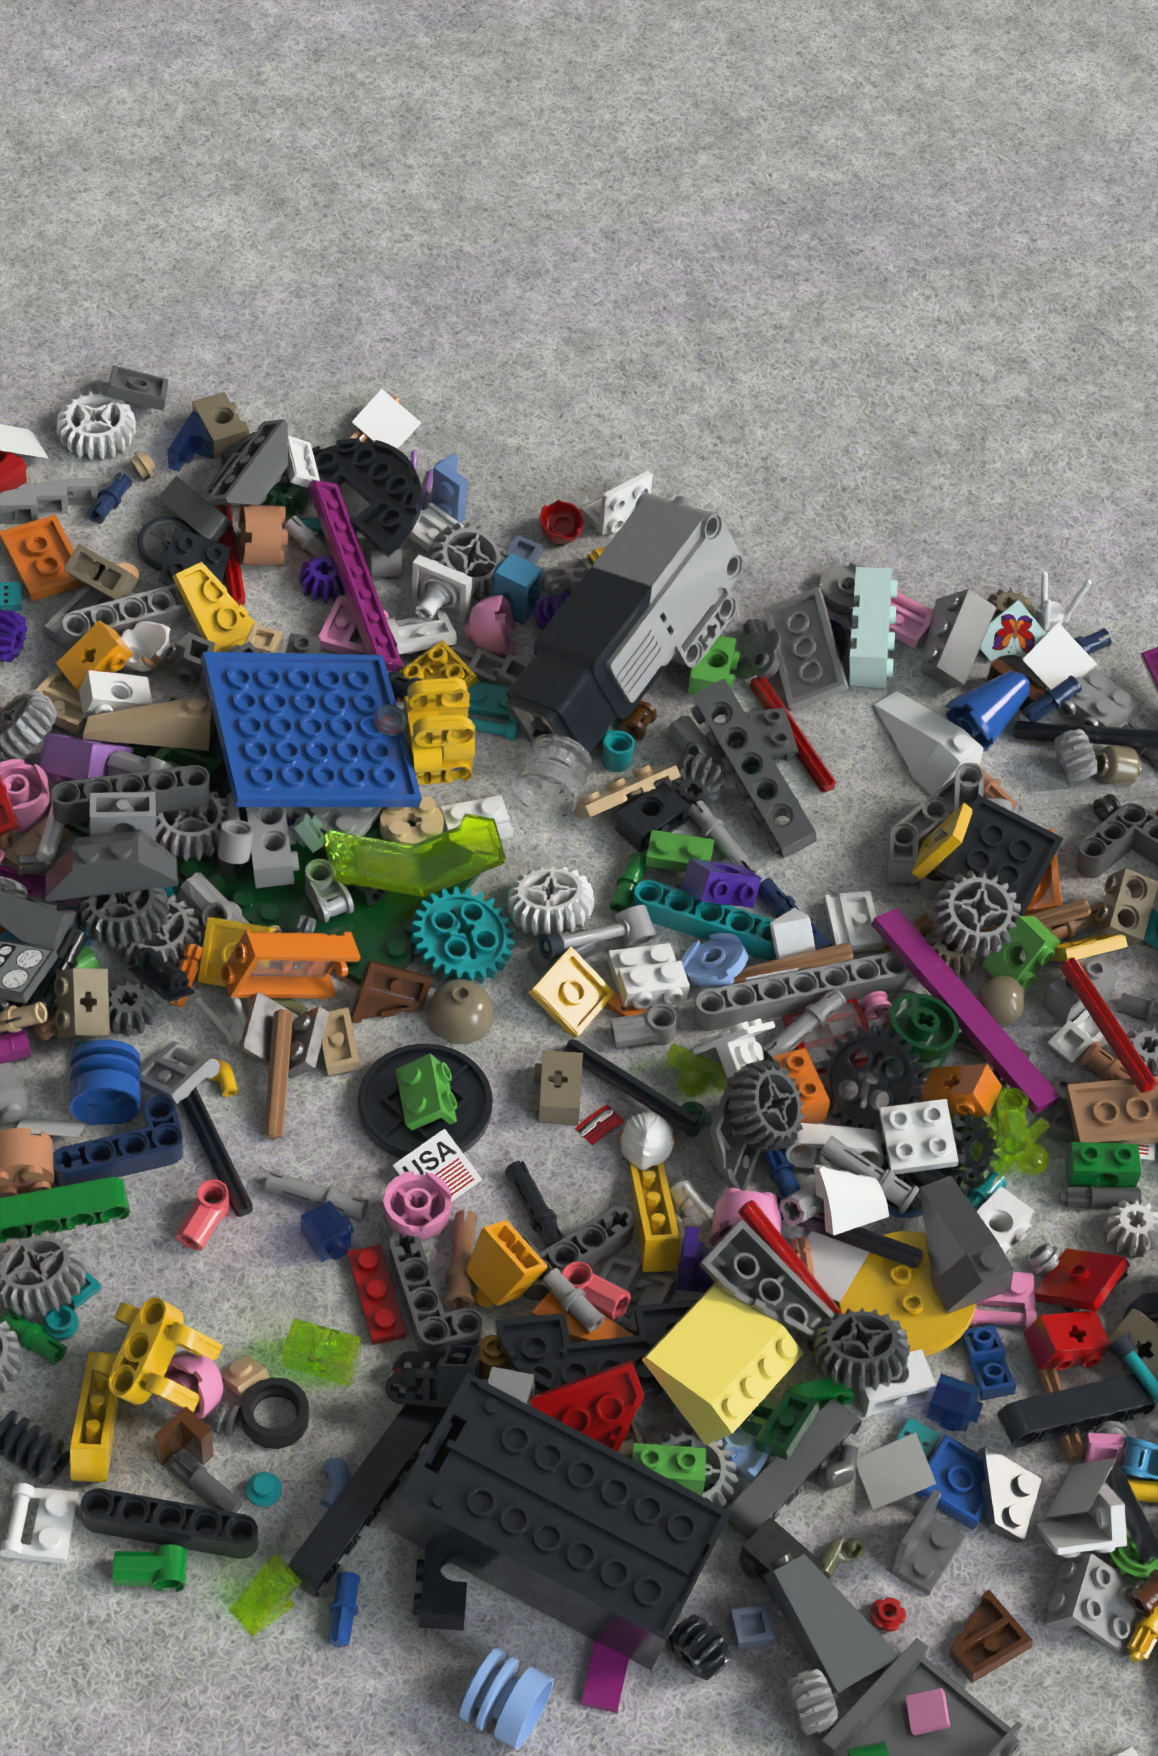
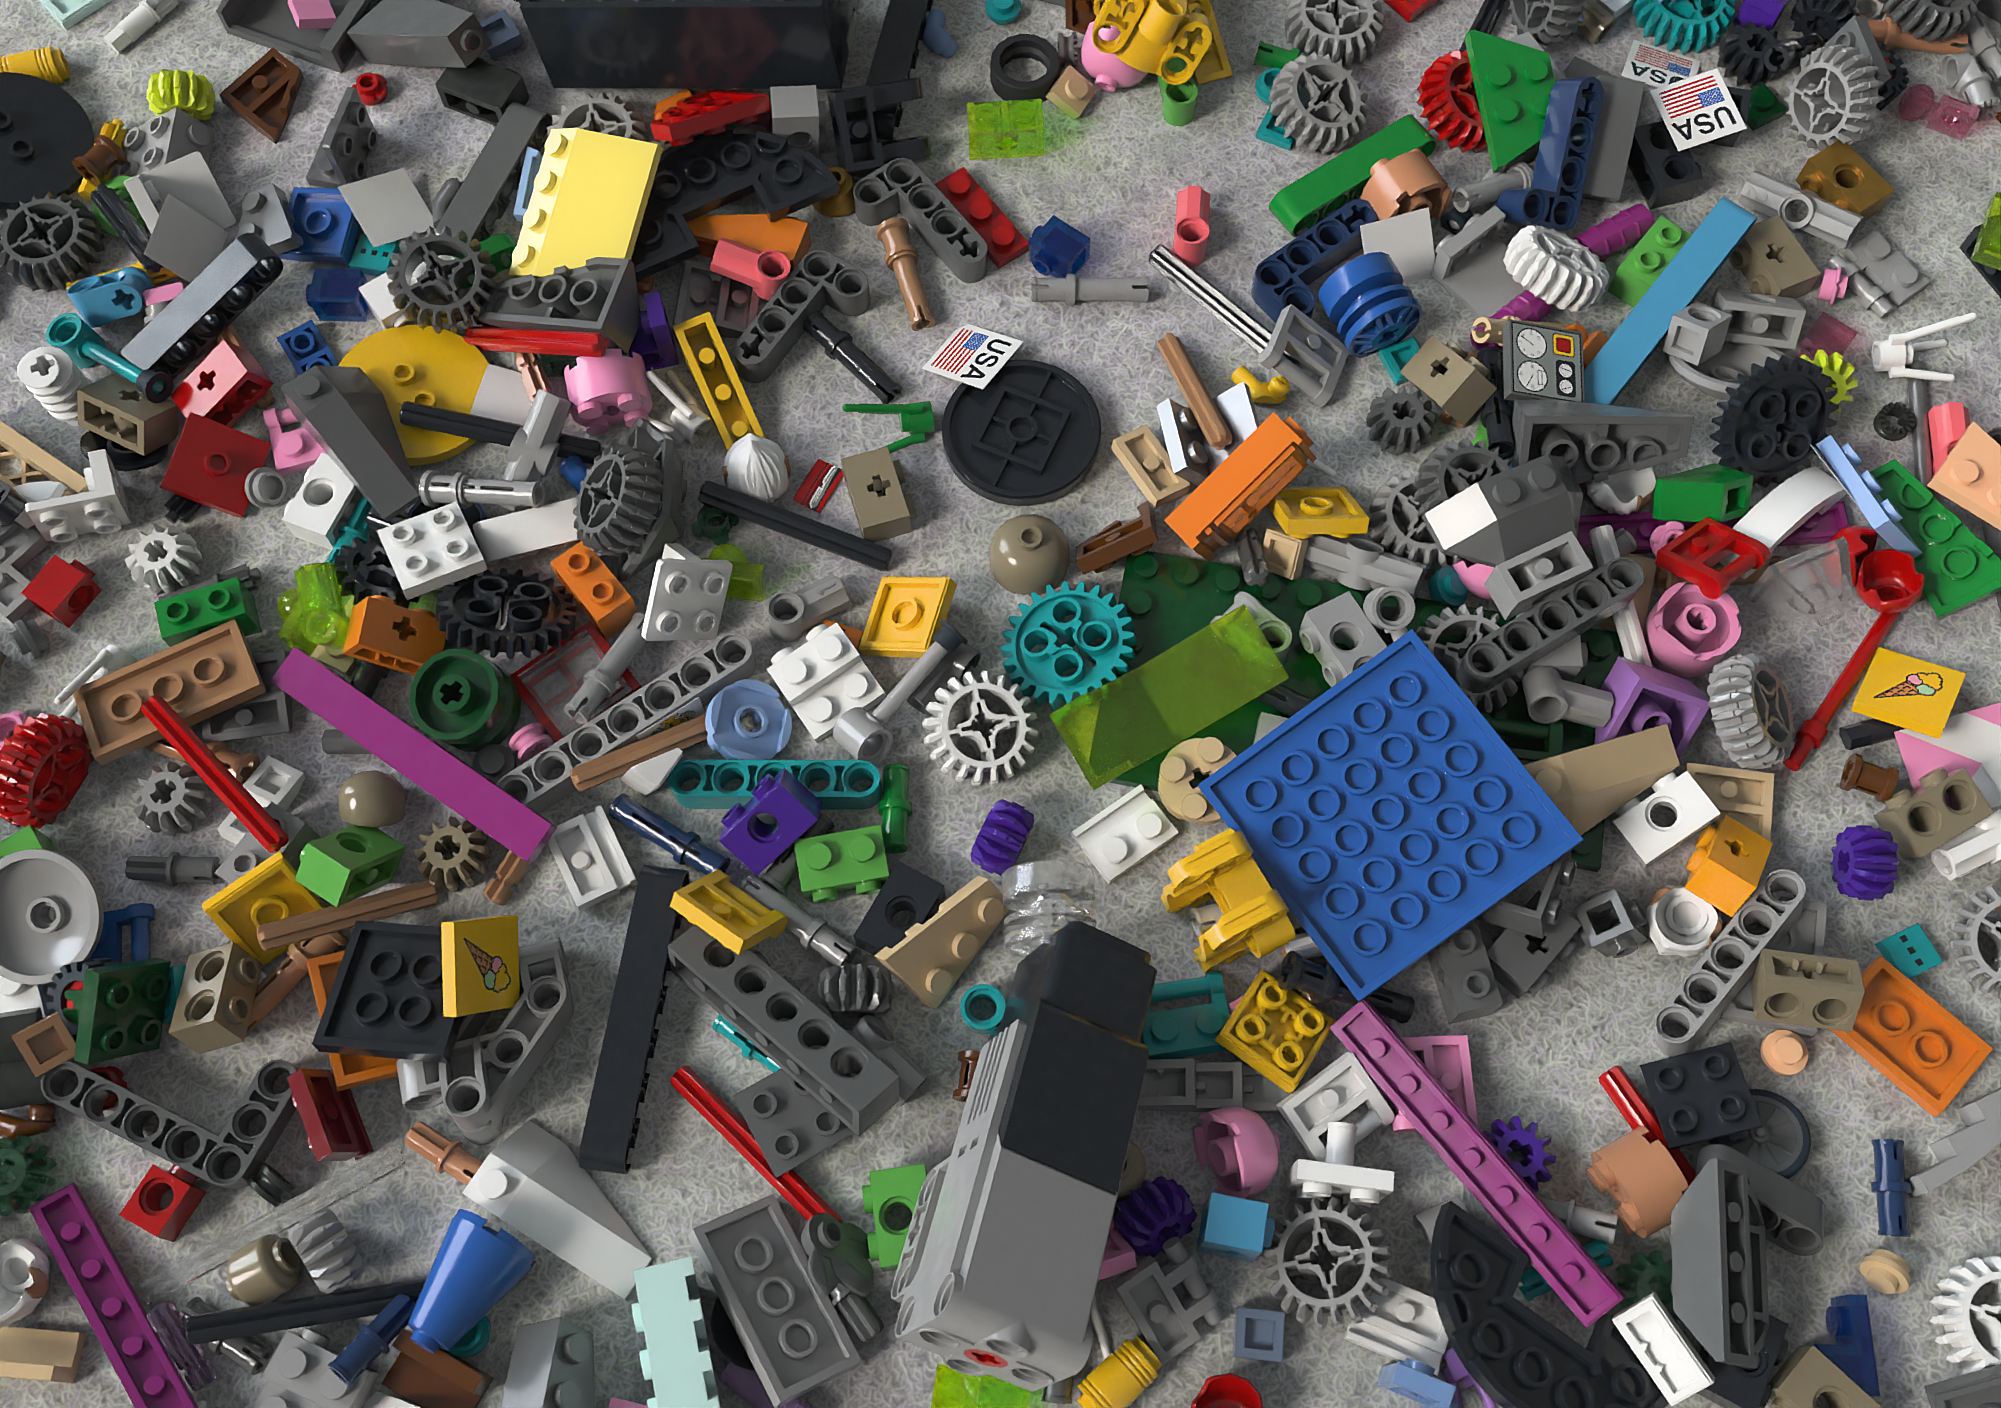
camera: 165 degrees right, 15 degrees up
(161, 976) = (1380, 447): black hinge -> none
(189, 965) = (1360, 478): orange axle -> none
(213, 609) = (1622, 1010): yellow wing -> none
(264, 639) = (1530, 972): tan tile -> none
(308, 831) = (1310, 673): sand green plate -> none
(391, 720) = (1293, 880): clear light blue tile -> none
(417, 1205) = (971, 292): bright pink cylinder -> none
(426, 1092) = (1018, 418): bright green bracket -> none
(502, 1265) = (853, 243): light orange torso -> none
(506, 1138) = (913, 418): none -> green plant
(564, 831) = (1002, 837): none -> dark purple gear
(573, 1300) = (766, 232): light grey pin -> none
(676, 1463) = (610, 92): bright green brick -> none
(774, 832) = (727, 912): none -> yellow plate
(781, 1425) = (505, 188): dark green hinge -> none
(841, 1552) = (433, 128): olive arm -> none
(845, 822) = (631, 1023): none -> black beam
(849, 1199) = (491, 436): white slope -> none
(954, 913) = (426, 882): light grey gear -> none
(1064, 820) = (329, 1116): none -> dark red plate
(1068, 1644) = (181, 90): none -> neon yellow gear

